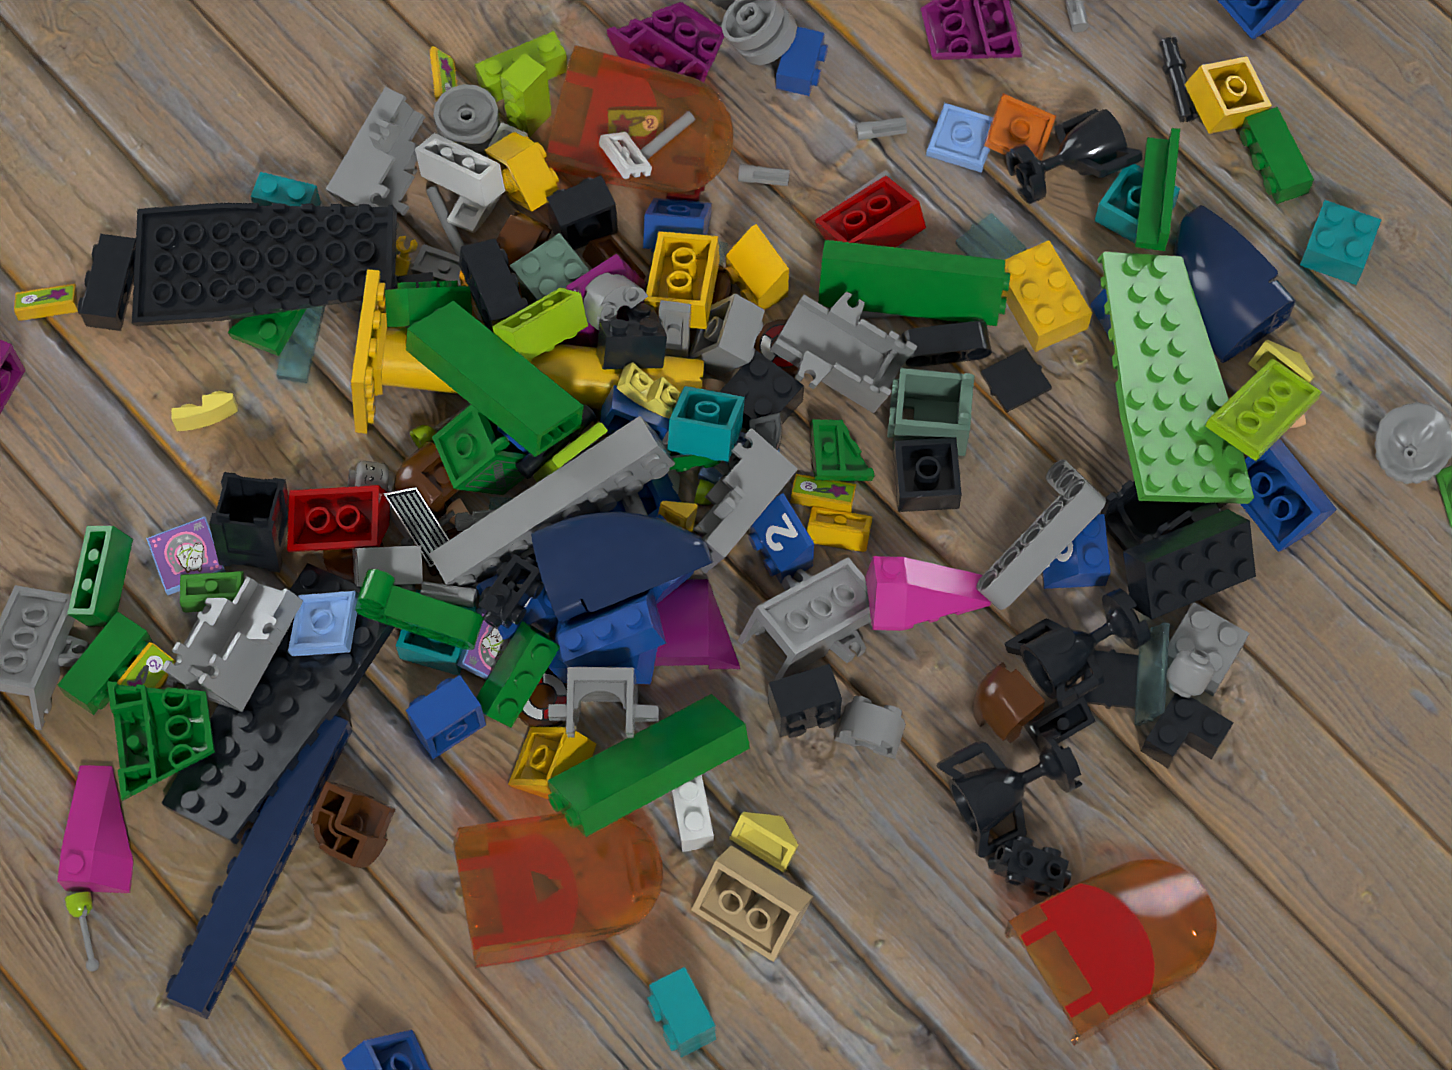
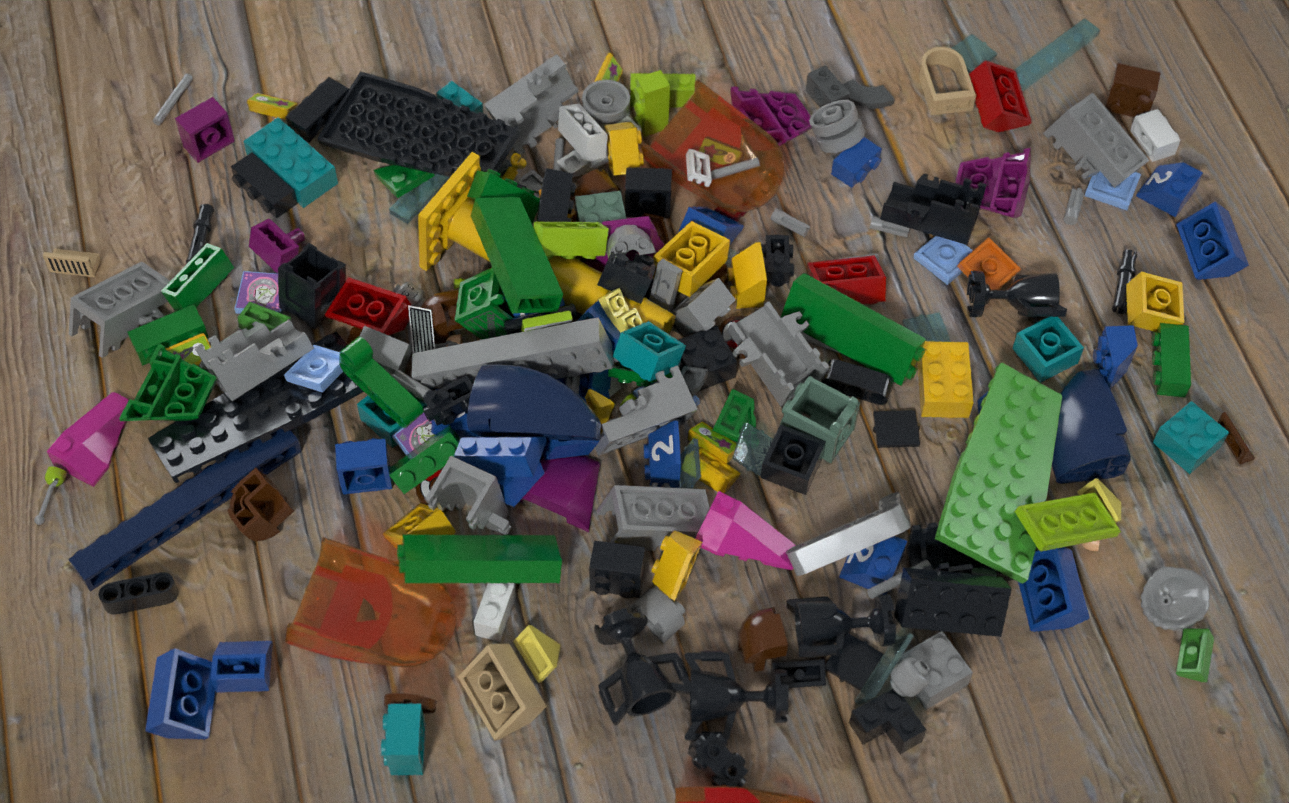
camera: 25 degrees right, 10 degrees down
(59, 505) = (202, 227): none -> black pin
(103, 414) = (263, 185): none -> black brick
(119, 369) = (293, 160): none -> teal brick
(169, 488) = (273, 244): none -> magenta brick
(214, 409) = (333, 212): light yellow slope -> none
(253, 997) = (127, 588): none -> black beam
(444, 1018) = (242, 666): none -> blue slope
(662, 969) = (428, 704): none -> reddish brown tile
(782, 235) = (777, 259): none -> black brick
(825, 543) = (690, 465): none -> clear light blue piece
(868, 664) = (675, 564): none -> yellow slope
(874, 481) = (751, 448): none -> clear light blue piece
(900, 814) = (642, 680): none -> black piece
(924, 85) = (935, 207): none -> black piece
(1118, 565) = (891, 583): none -> light grey bar
(1157, 192) = (1064, 341): green fence -> none
(1214, 177) = (1115, 352): none -> blue slope
(1389, 225) = (1235, 440): none -> reddish brown slope

